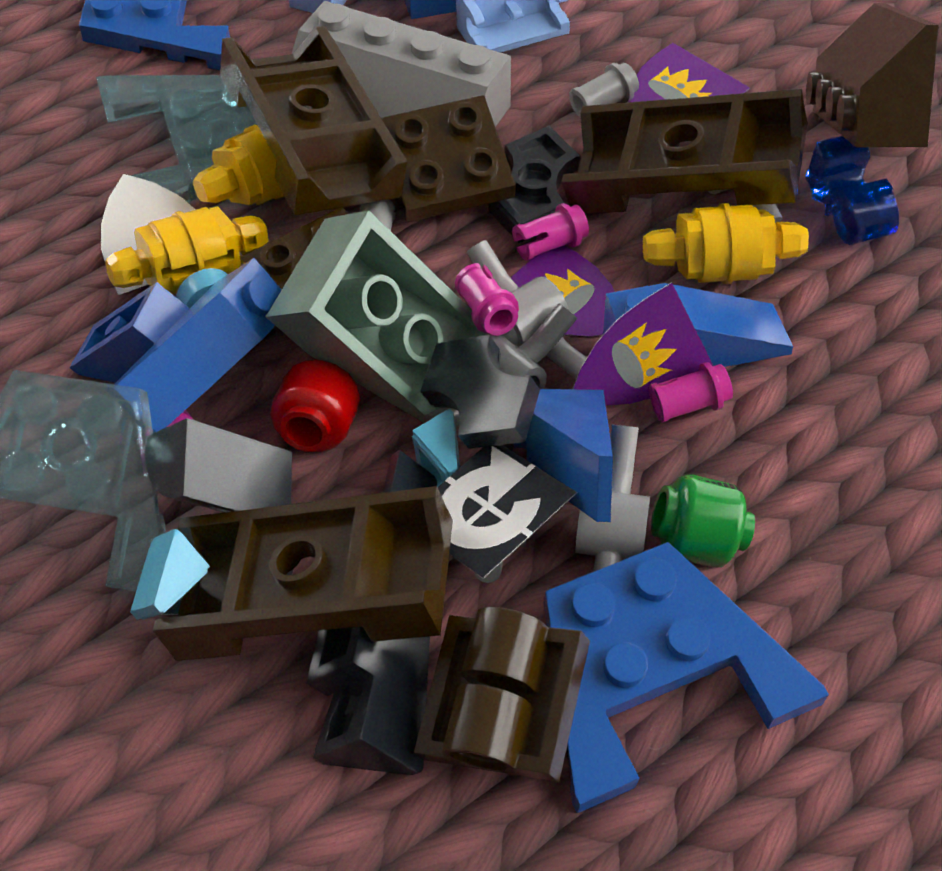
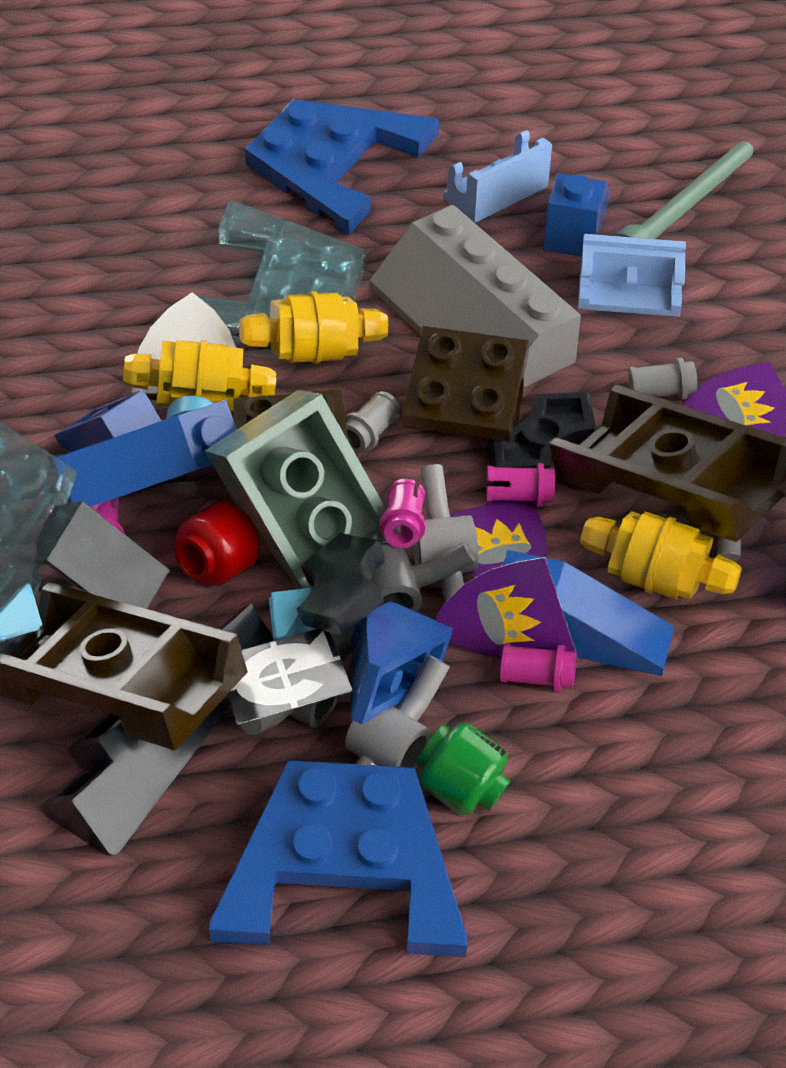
camera: 25 degrees right, 5 degrees down
(326, 153) = (359, 339): dark brown piece -> none
(503, 694) = (201, 820): dark brown plate -> none

